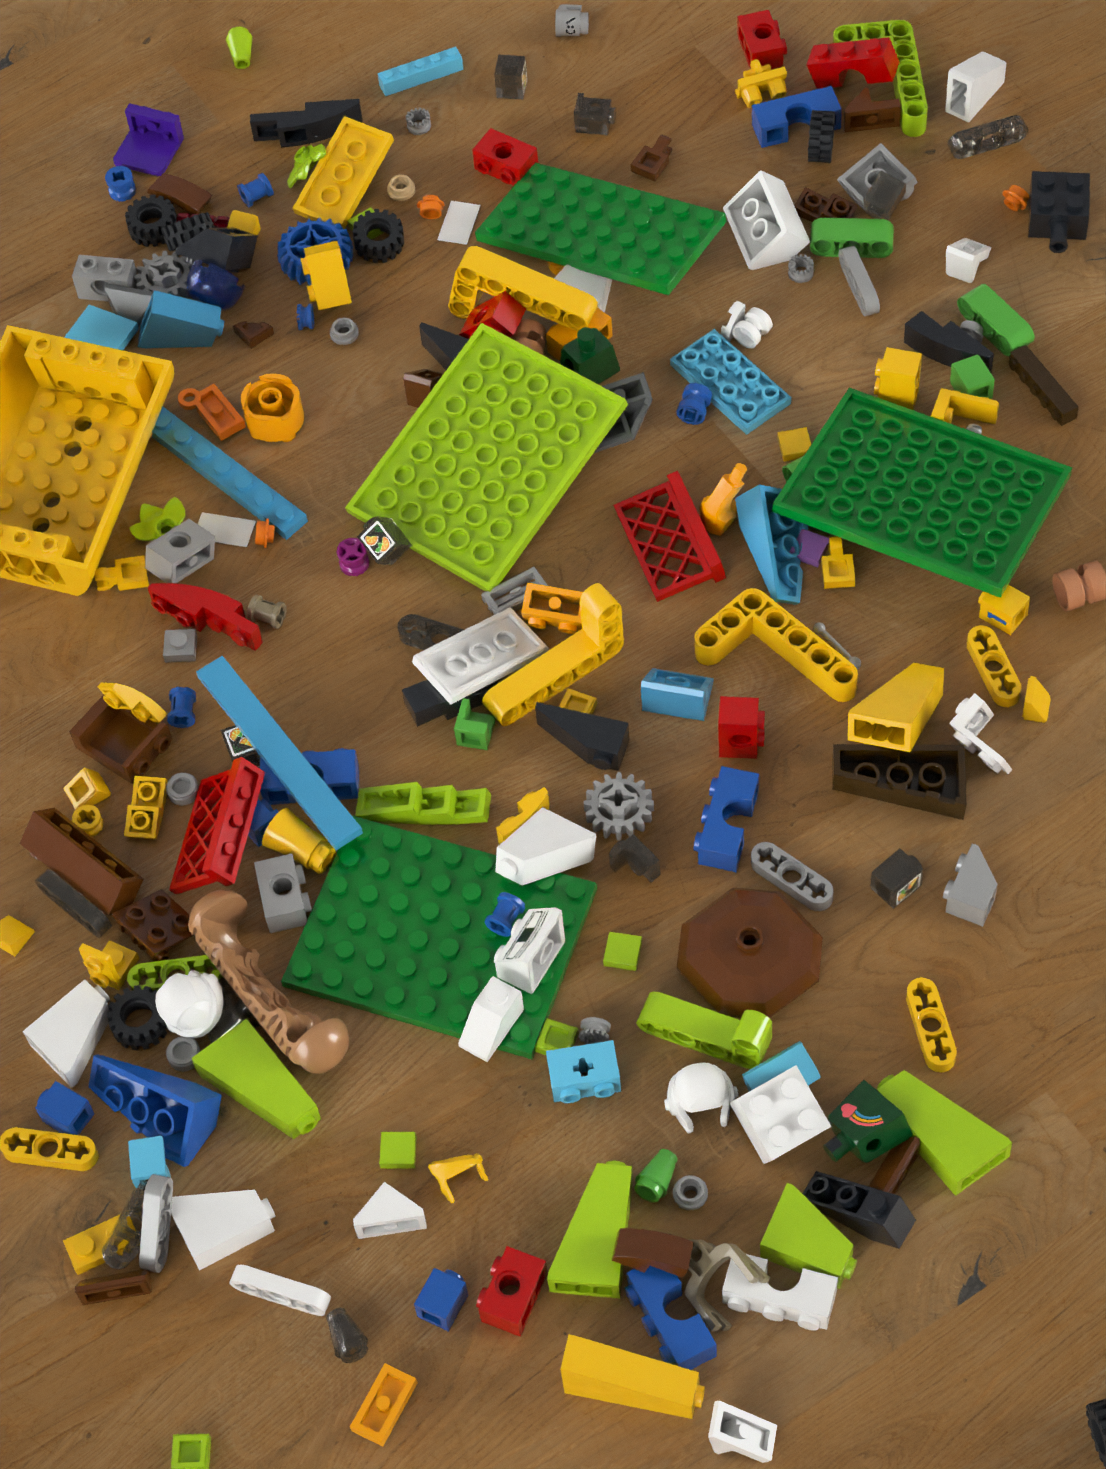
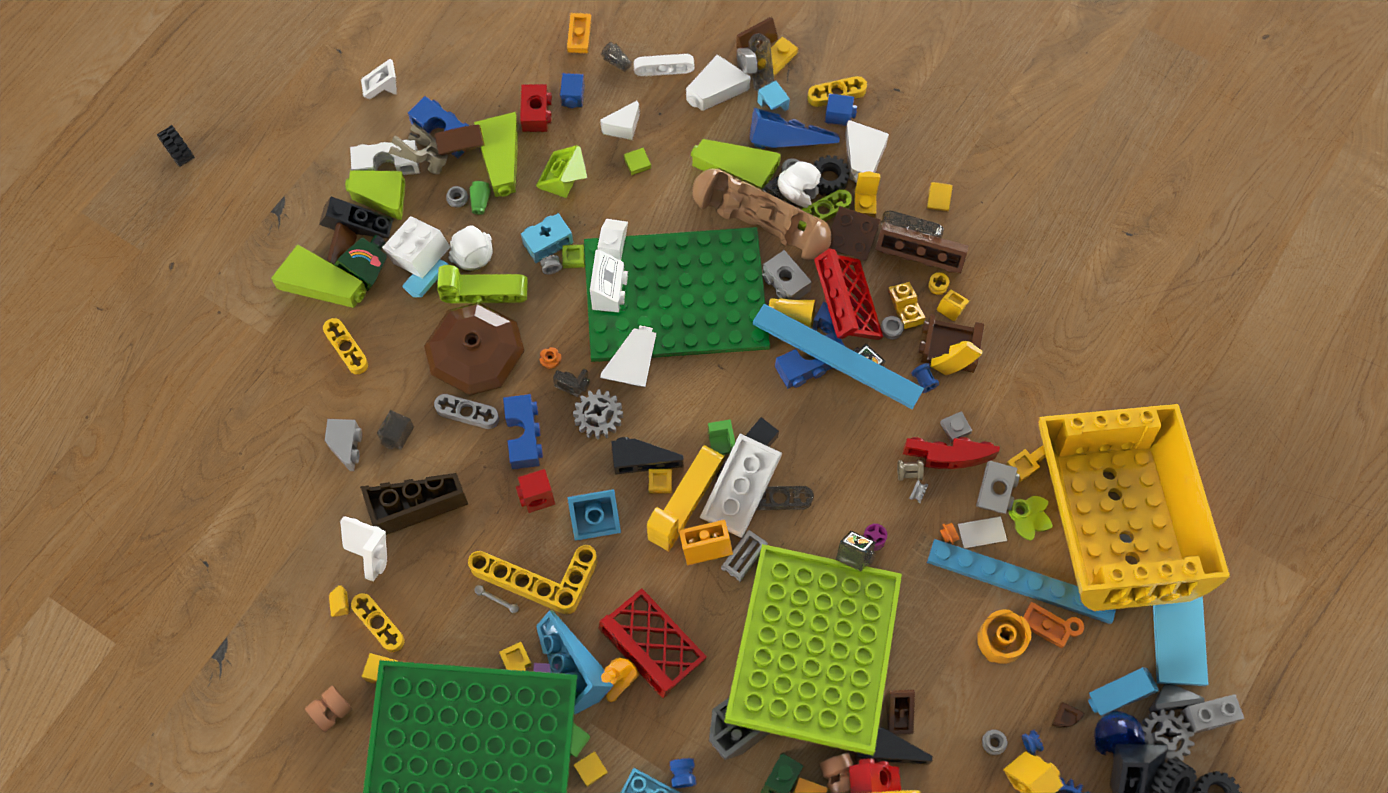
camera: 150 degrees right, 10 degrees up
(271, 586) = (918, 490): none -> light grey bush
(423, 806) = (728, 371): lime slope -> none
(450, 1167) = (603, 149): yellow piece -> none
(505, 914) = (635, 304): blue bush -> none
(518, 1164) = (562, 171): none -> lime slope
(527, 807) = (655, 386): yellow slope -> none
(622, 951) = (556, 323): lime tile -> none
(629, 1378) = (451, 82): yellow slope -> none
(654, 913) = (550, 363): none -> orange plate
(898, 709) = (426, 538): yellow slope -> none

